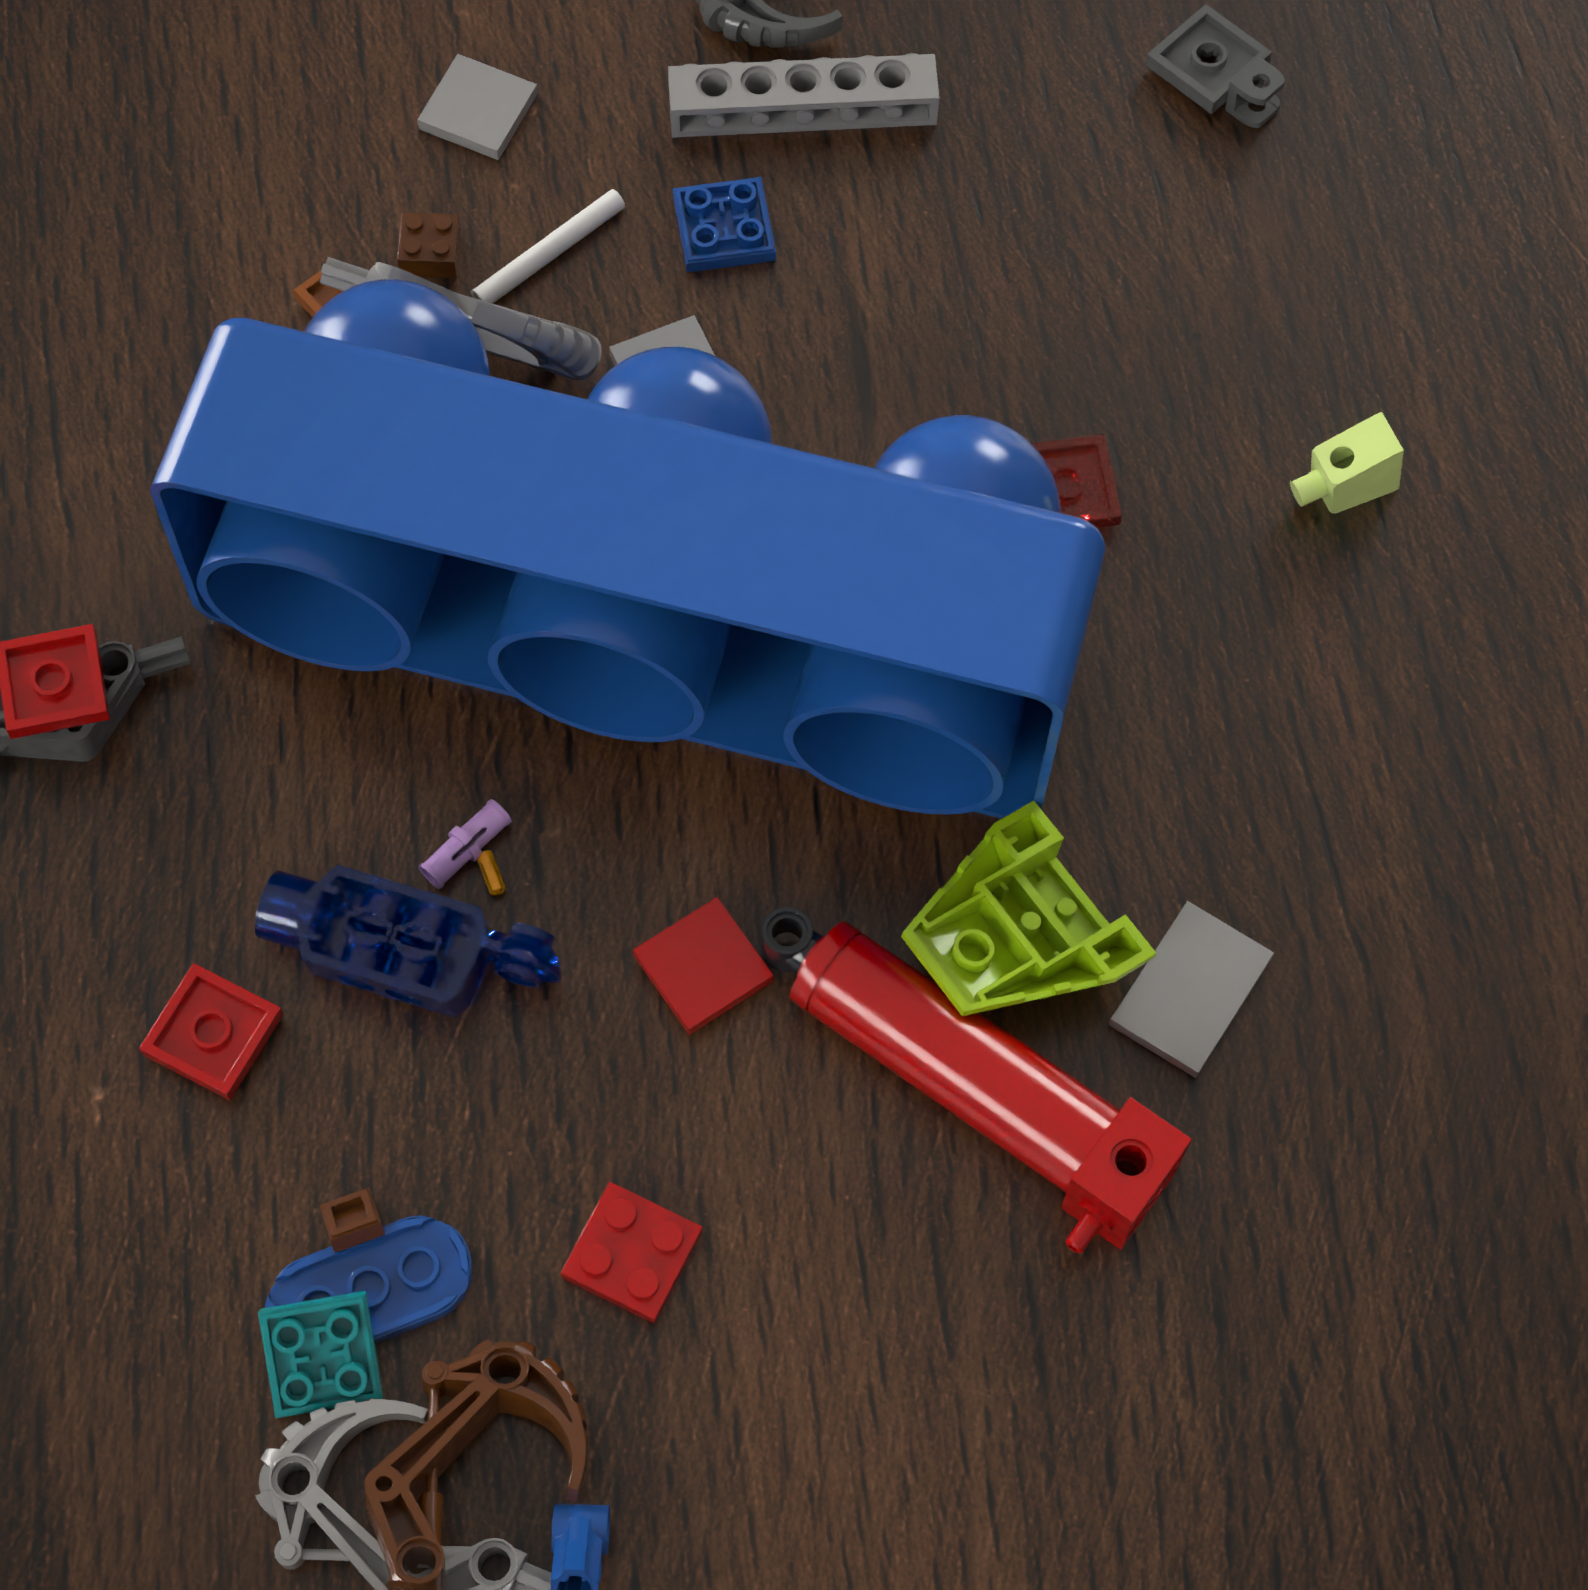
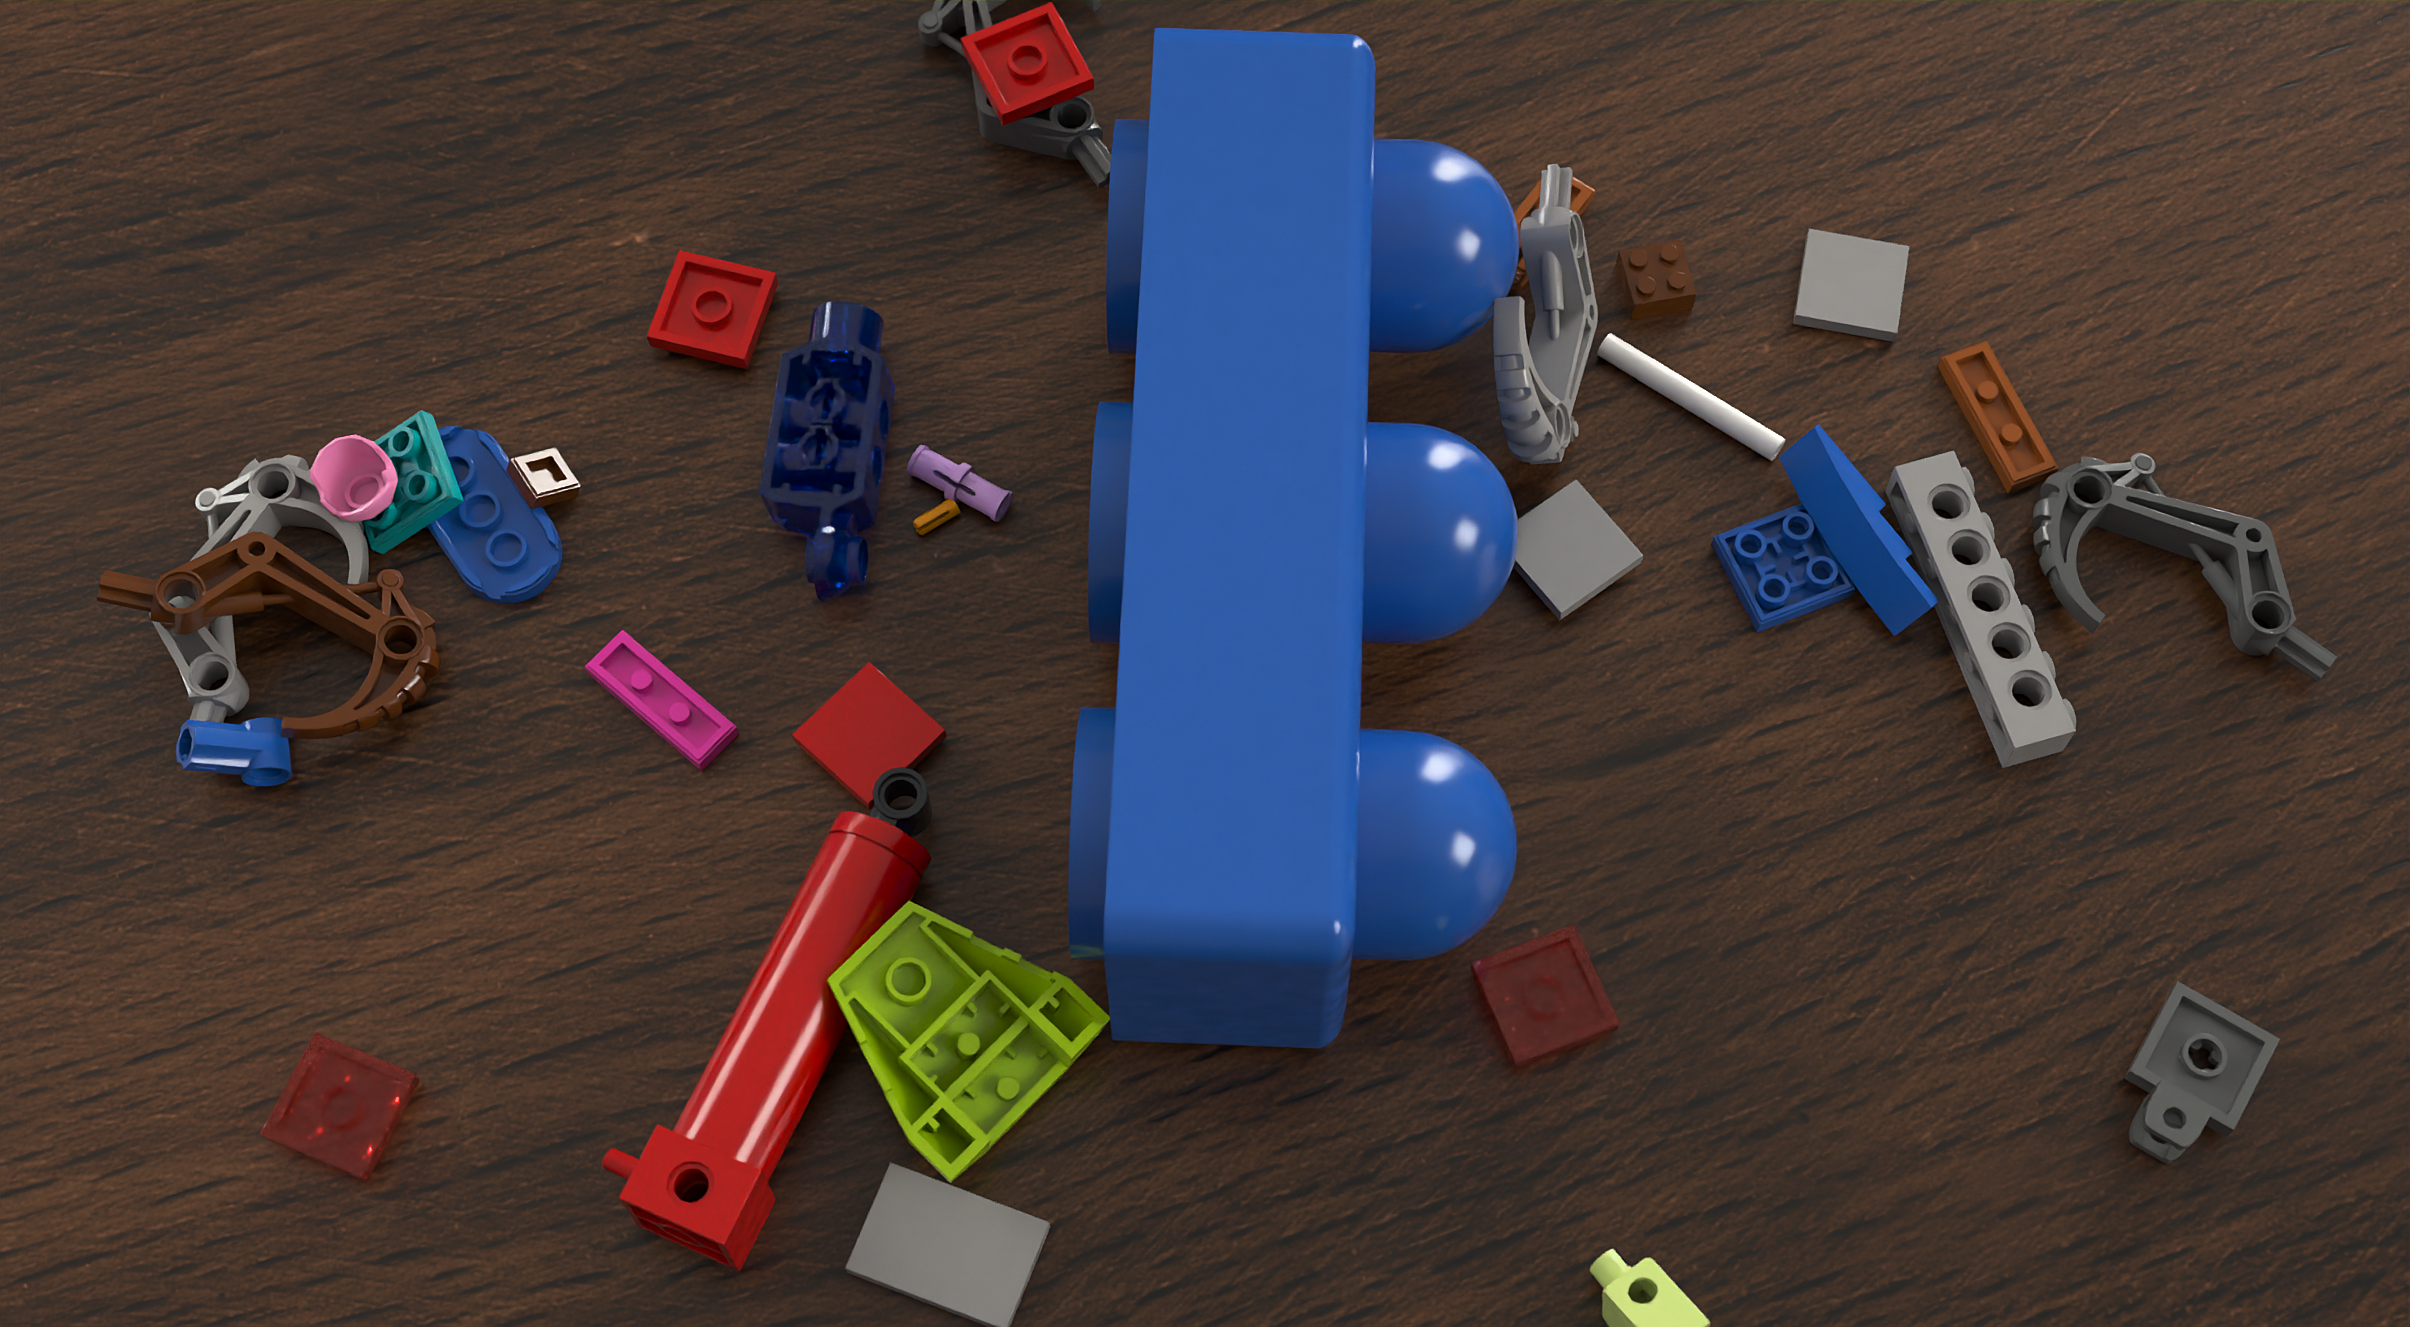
camera: 80 degrees right, 0 degrees up
(324, 1383) = (354, 478): none -> bright pink hair
(615, 1148) = (661, 700): none -> dark pink tile
(630, 39) = (1997, 417): none -> dark orange tile
(632, 1252) = (554, 740): red plate -> none
(715, 156) = (1855, 531): none -> blue slope
(963, 1497) = (340, 1107): none -> clear red plate

